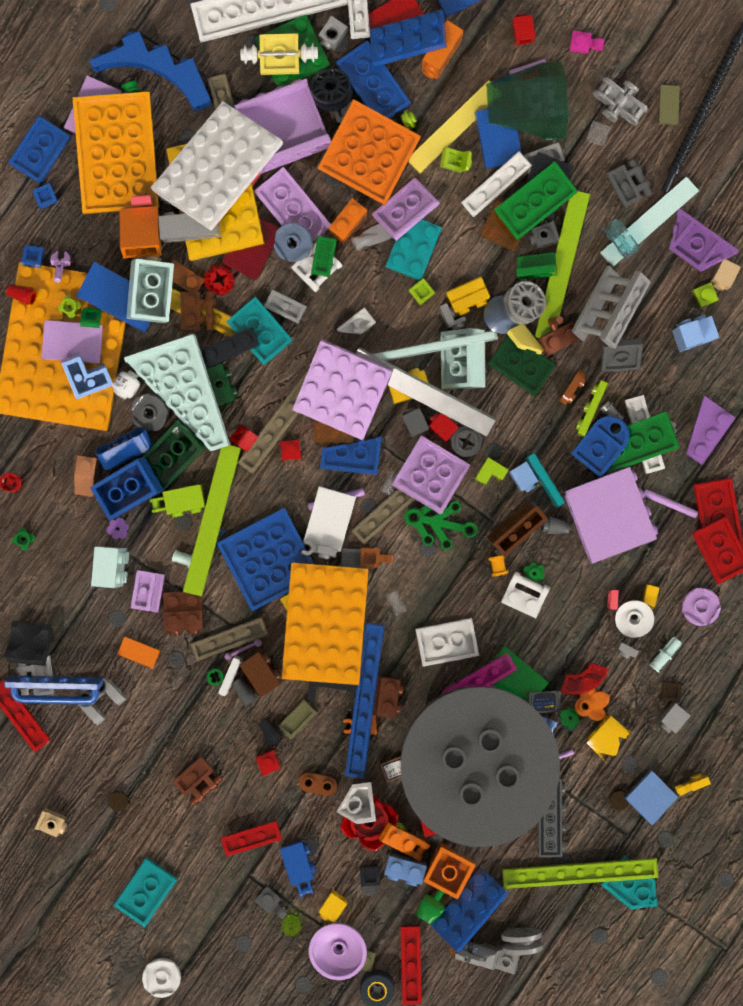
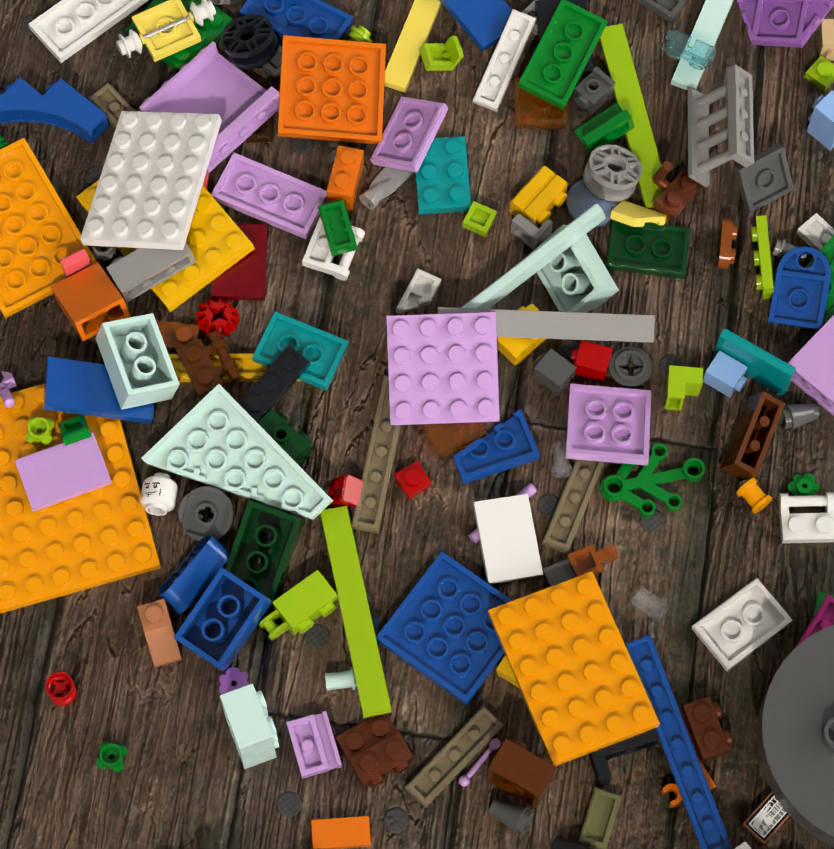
camera: 25 degrees left, 20 degrees down
(85, 381) = (98, 506): light blue brick -> none
(221, 675) = (467, 810): green bush -> none
(230, 676) = (482, 796): white tile -> none
(282, 242) = (285, 214): sand blue plate -> none
(285, 307) = (319, 310): light grey plate -> none
(322, 551) = (518, 582): light grey plate -> none

